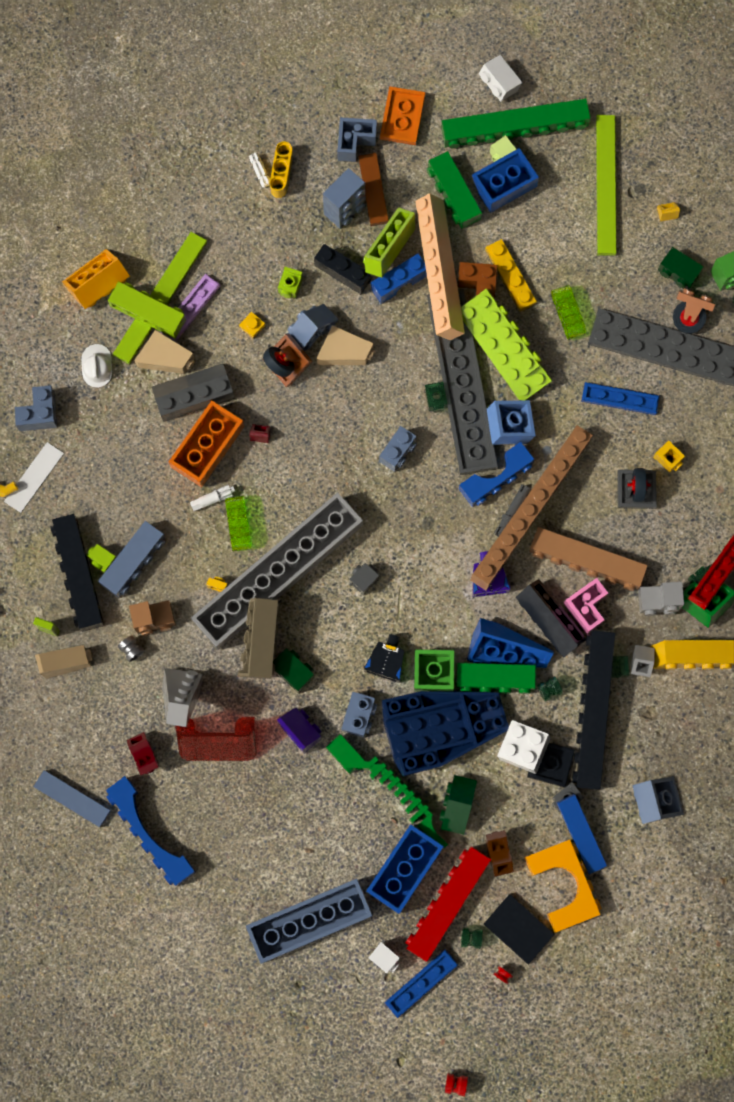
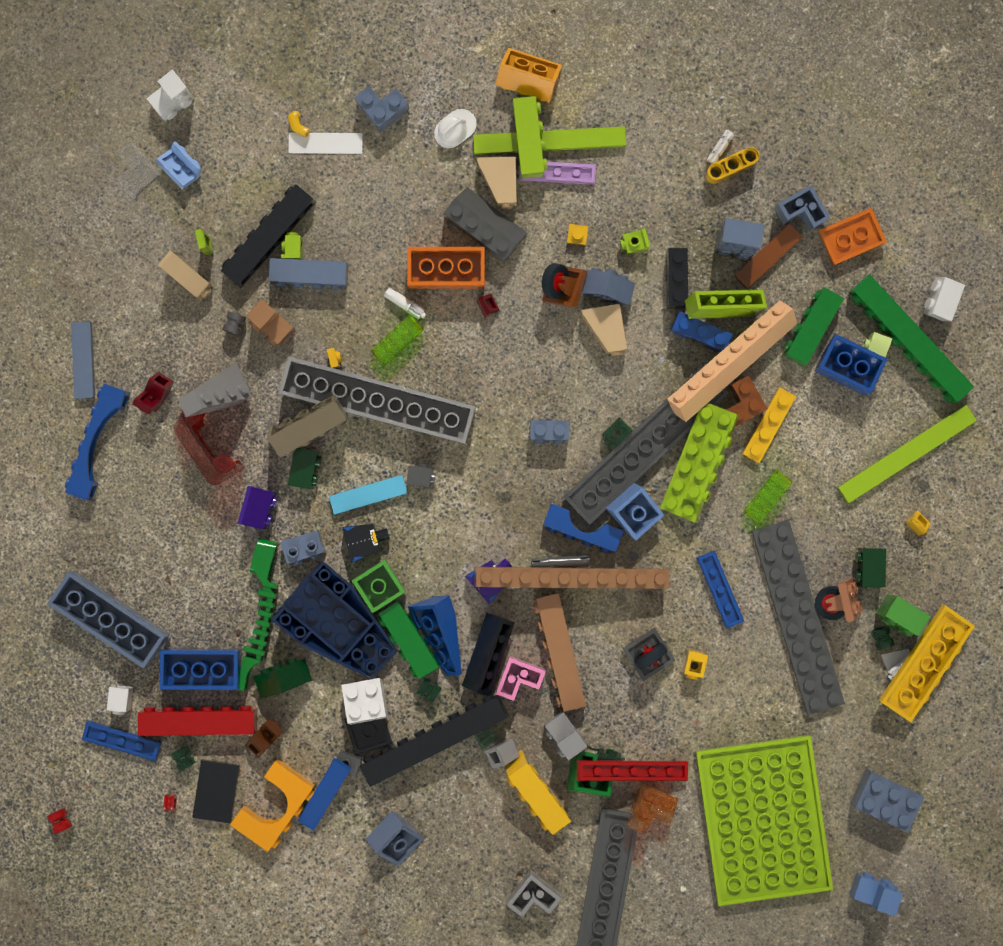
camera: 55 degrees right, 10 degrees up
(350, 632) = (368, 494): none -> medium azure tile

